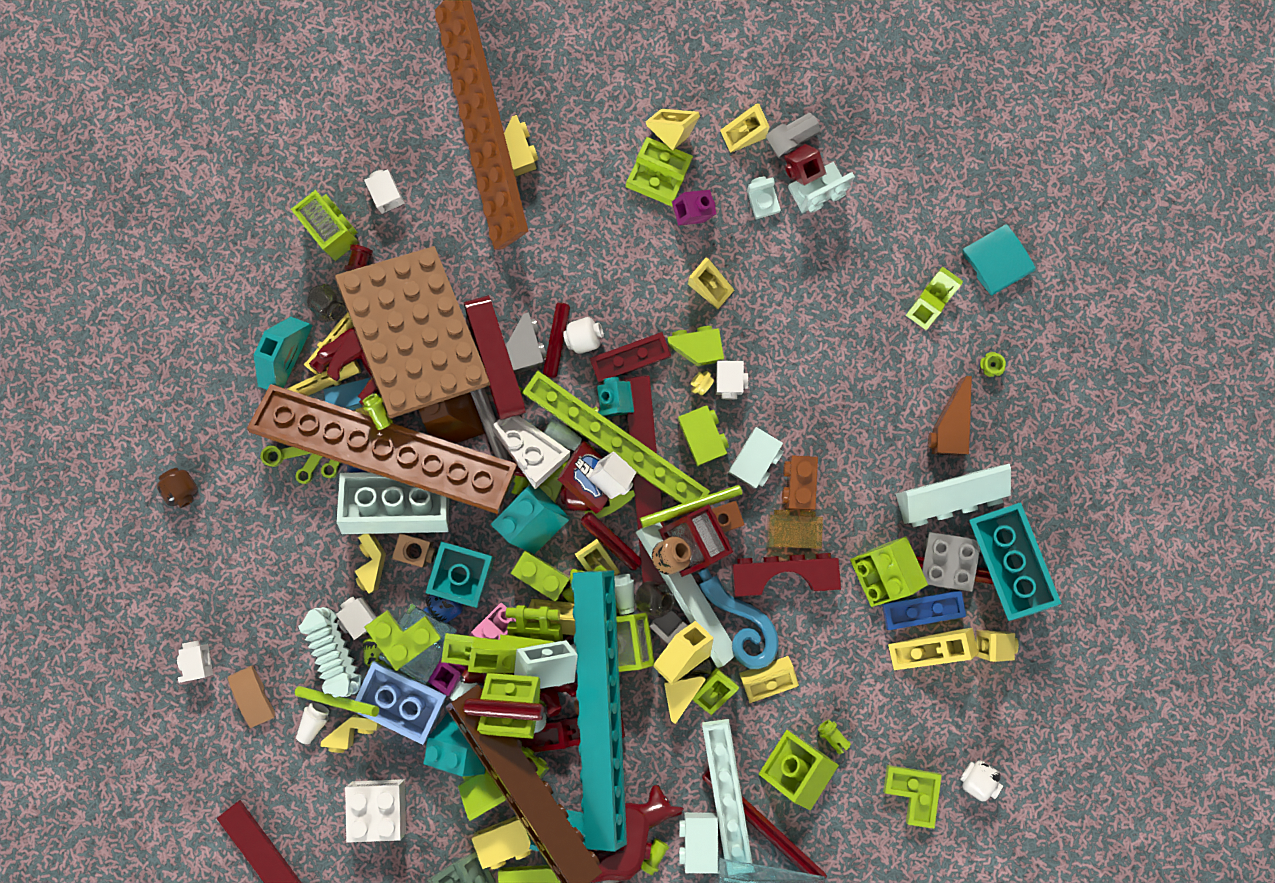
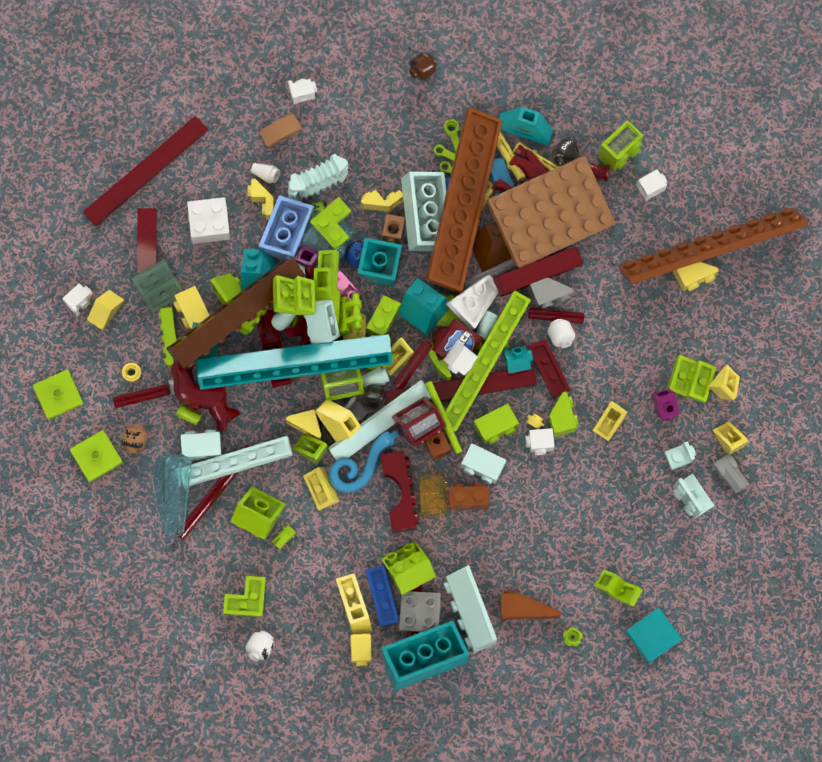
camera: 80 degrees right, 10 degrees down
(340, 702) = (284, 185): lime bar -> none
(354, 616) = (345, 191): white brick -> none
(374, 406) = (489, 192): lime pin -> none
(504, 709) = (291, 290): dark red axle -> none
(671, 555) = (406, 402): medium nougat head -> none
(804, 164) = (707, 481): dark red brick -> none

